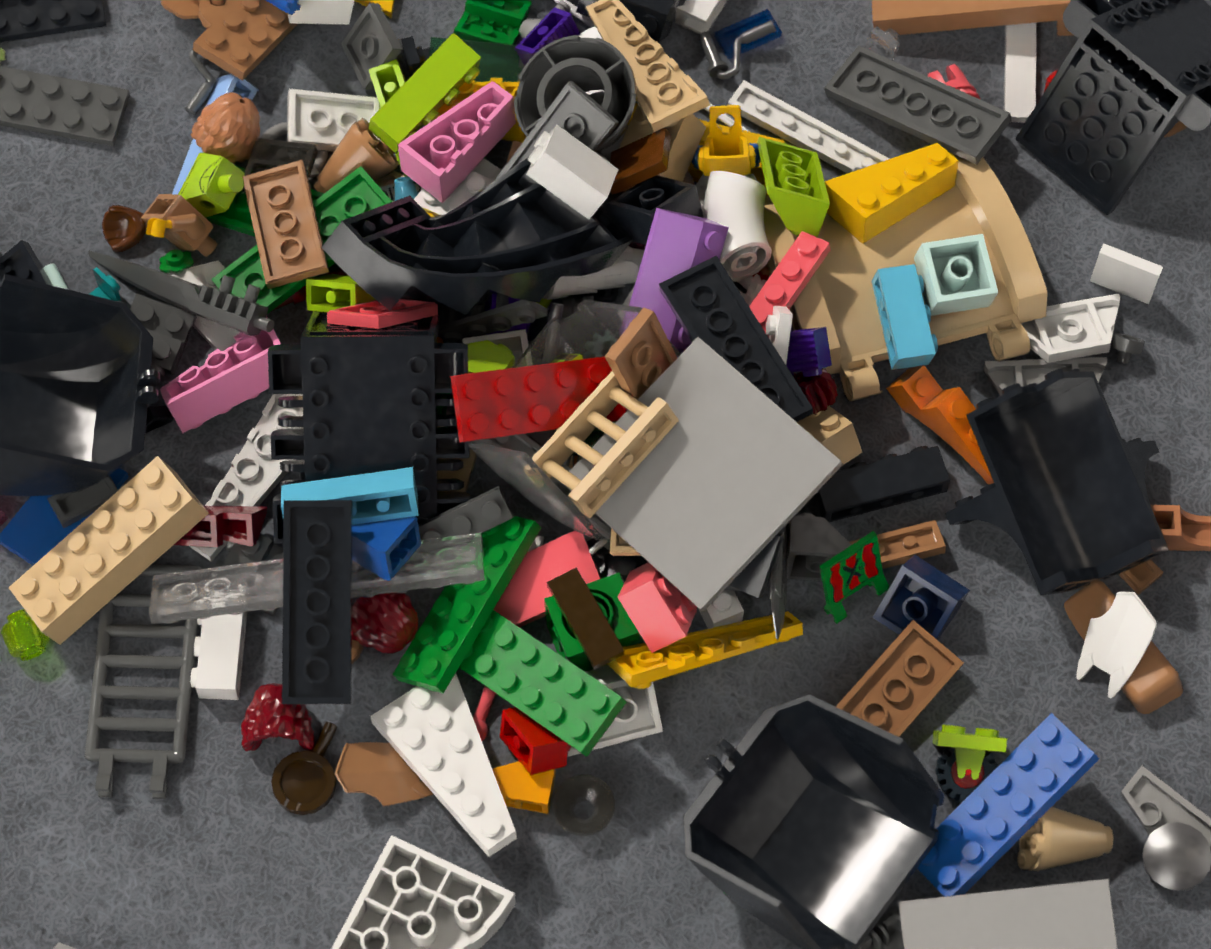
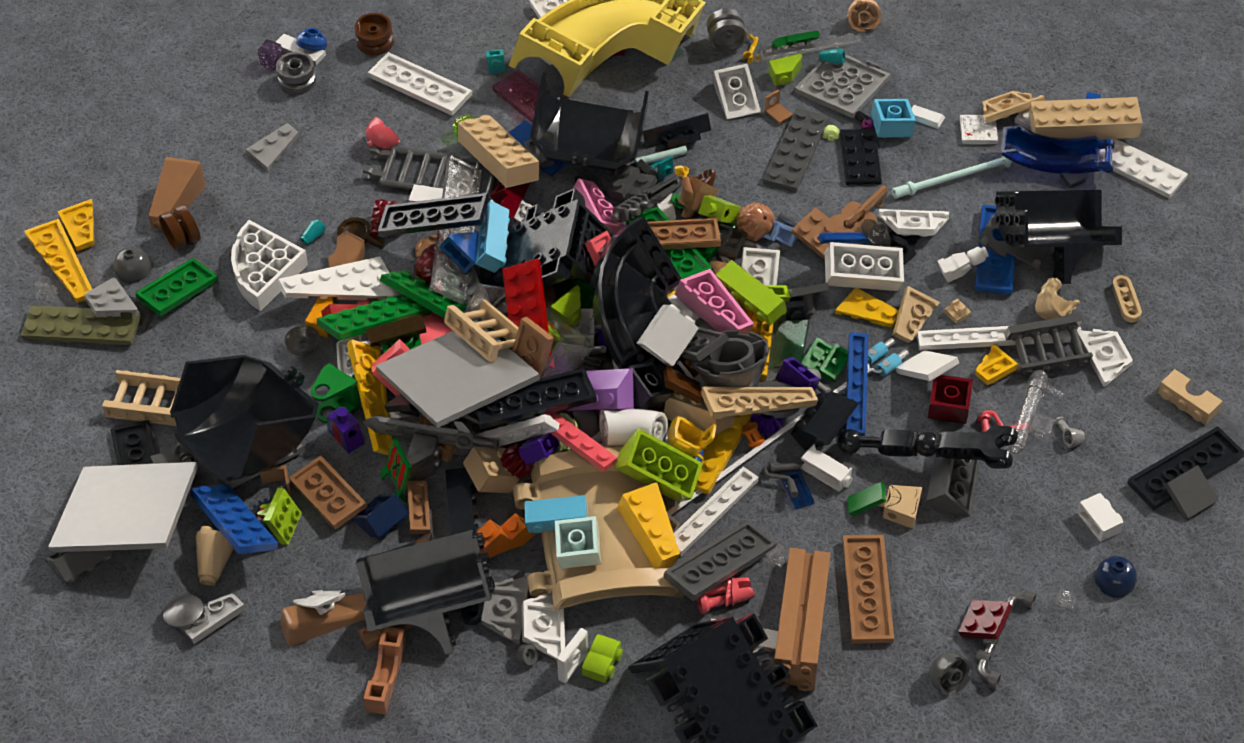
camera: 100 degrees right, 15 degrees down
(68, 779) = (380, 135): none -> coral cylinder
(318, 852) = (313, 231): none -> teal cone
(697, 711) = (341, 392): none -> green hose
(766, 686) = (342, 423): none -> dark purple torso
(1096, 232) = (602, 658): none -> lime brick

